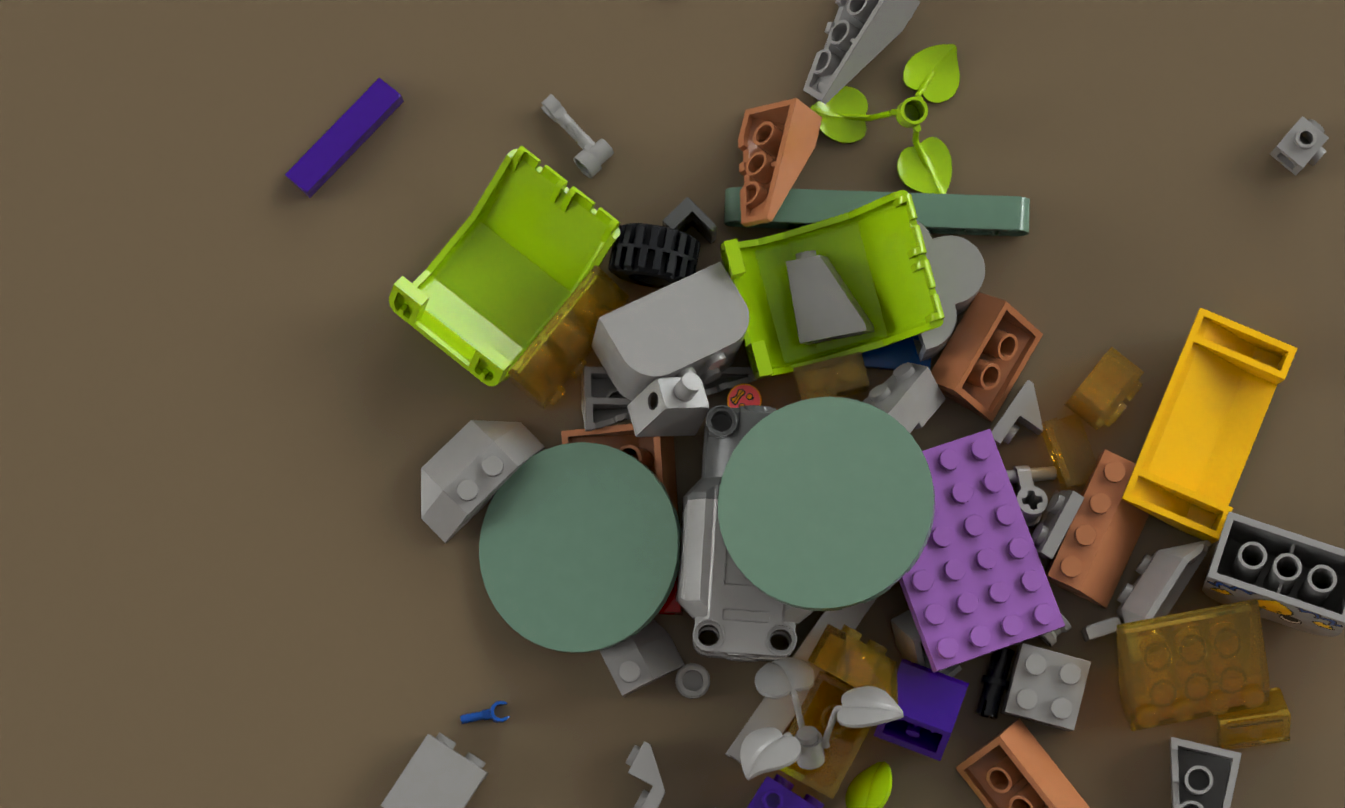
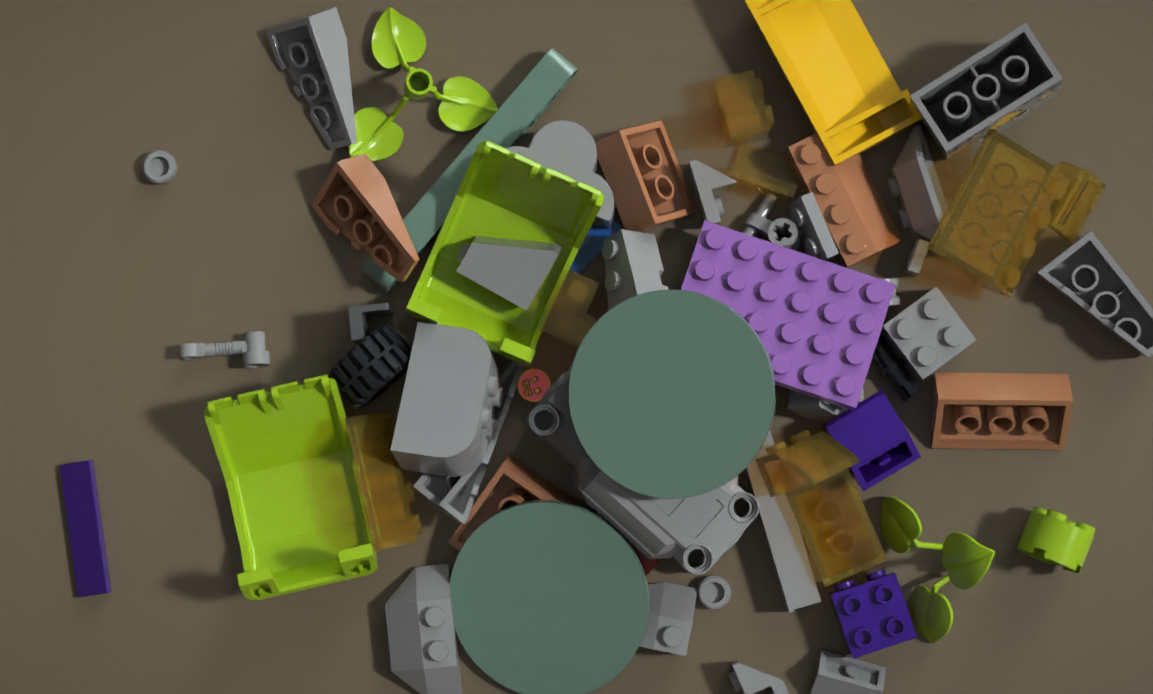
camera: 55 degrees left, 5 degrees up
(670, 407) = (503, 441): light grey torso -> none
(770, 750) = (819, 582): light grey plant -> none

